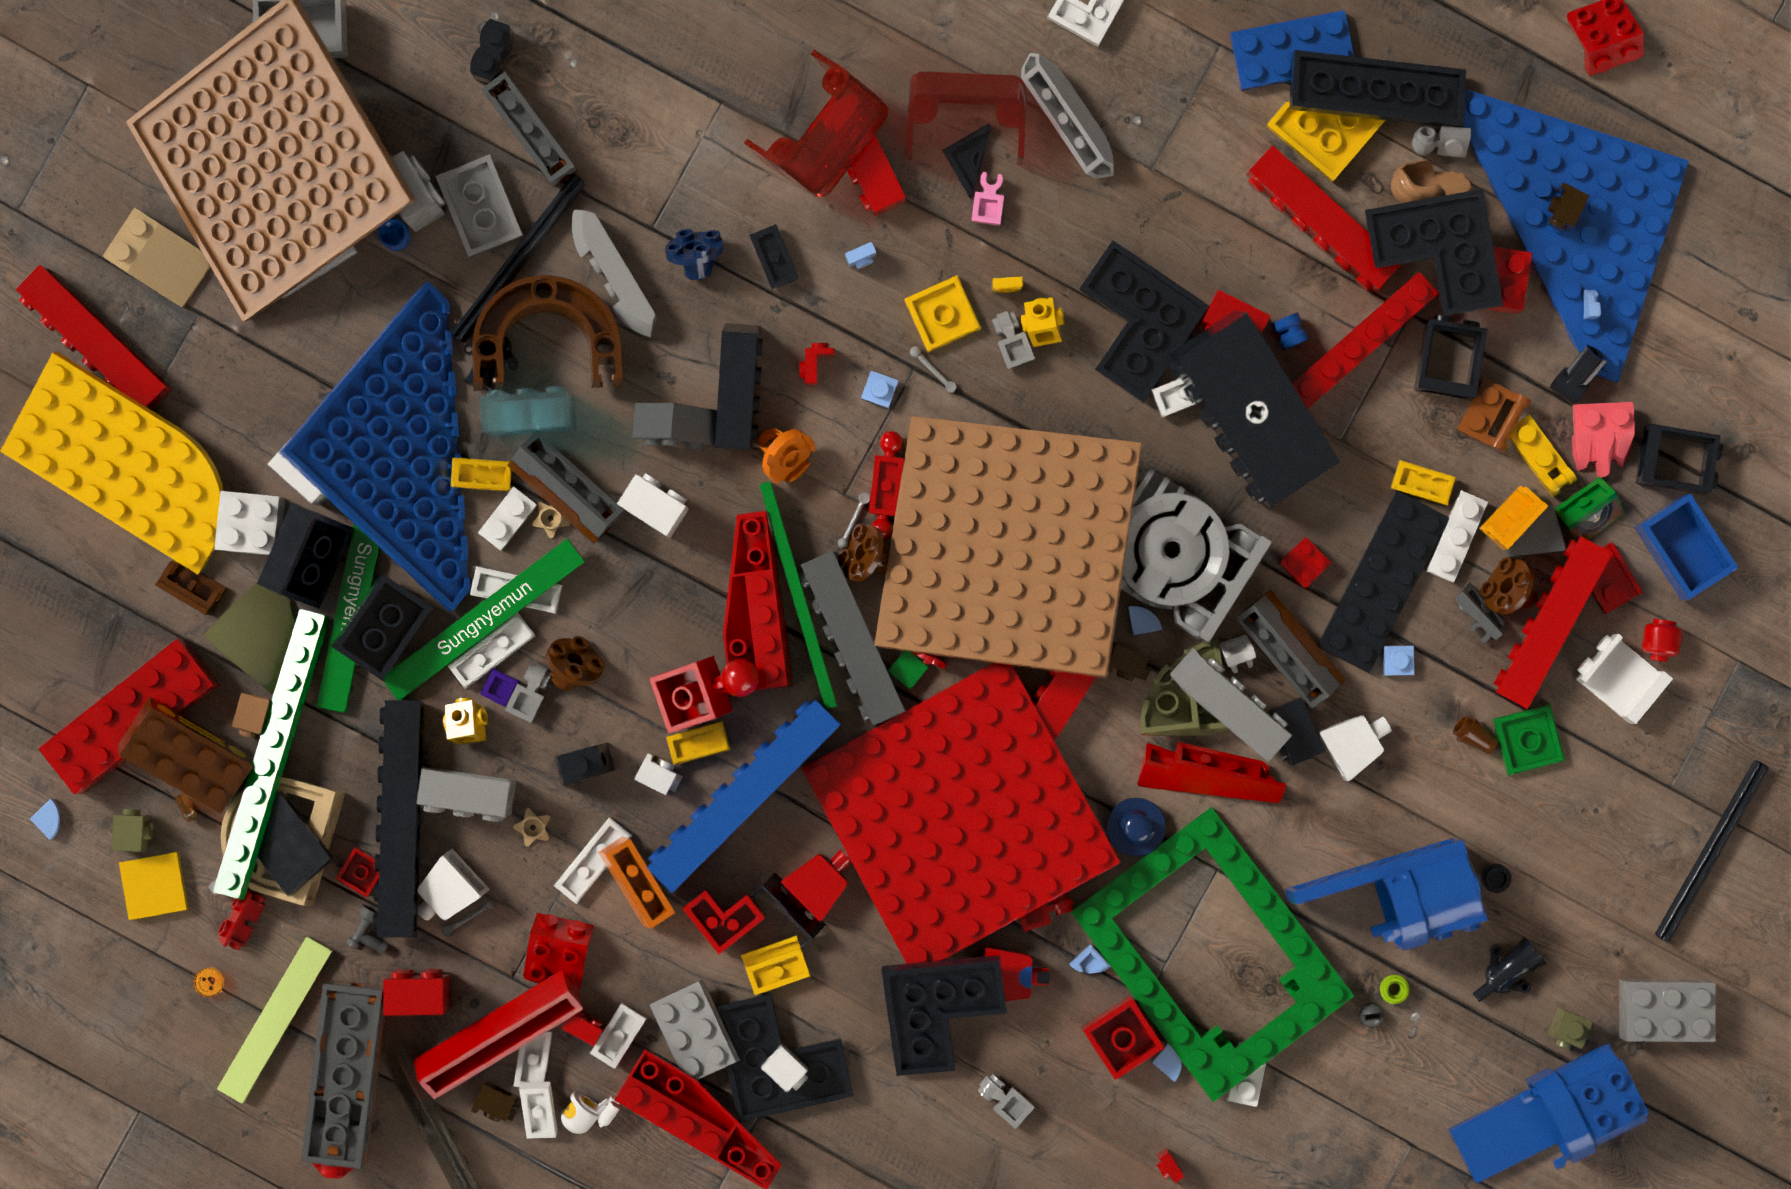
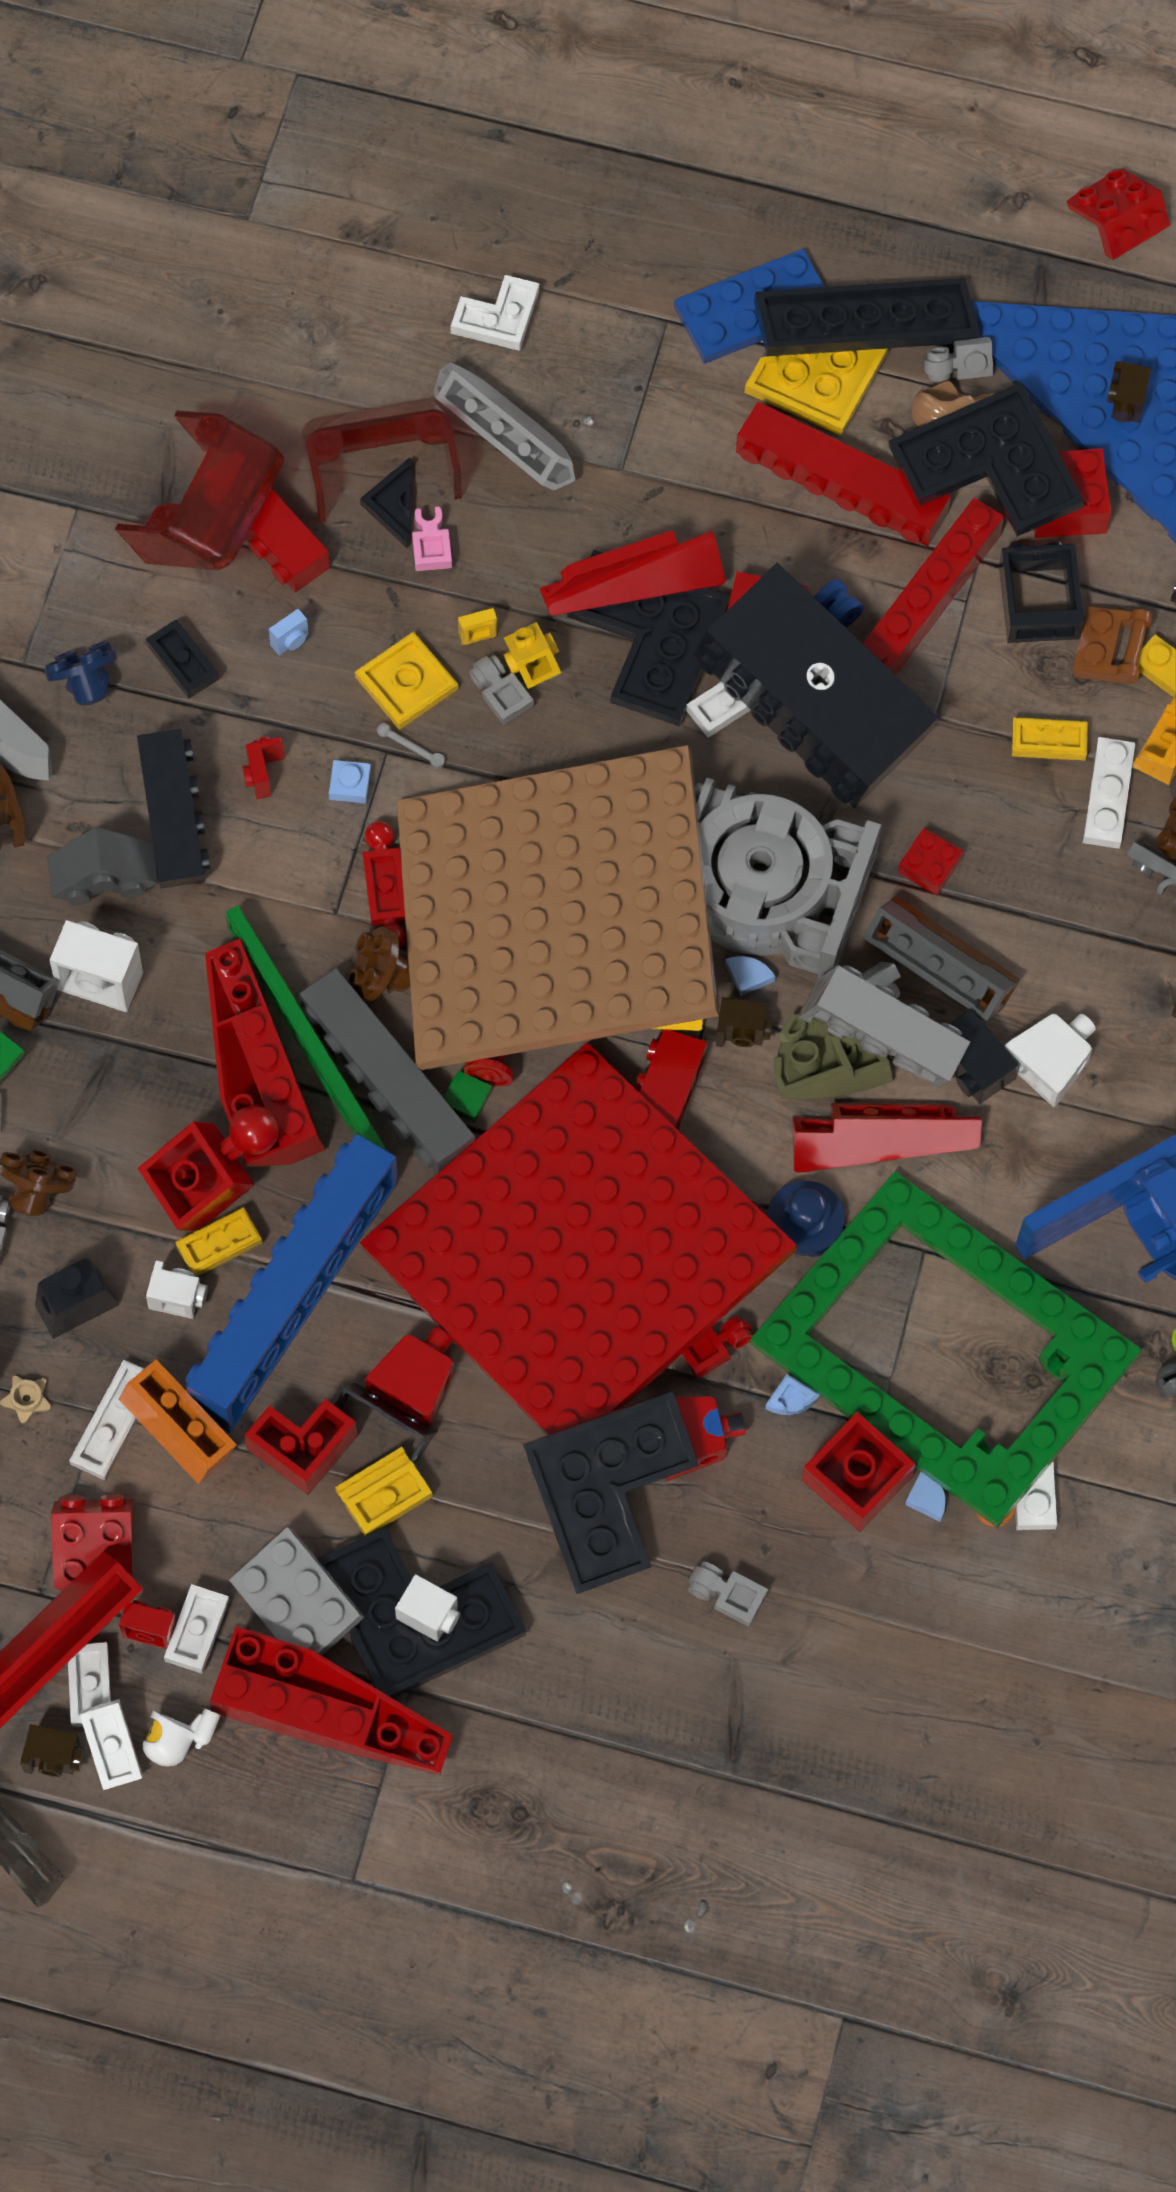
camera: 15 degrees left, 20 degrees down
(786, 455) = (251, 872): orange tile -> none
(864, 499) = (361, 912): light grey hinge -> none
(1139, 273) = (636, 573): none -> red wedge
(1169, 1167) = (964, 1624): red plate -> none
(1382, 581) = (1033, 864): black plate -> none
(1398, 660) = (1079, 949): light blue plate -> none

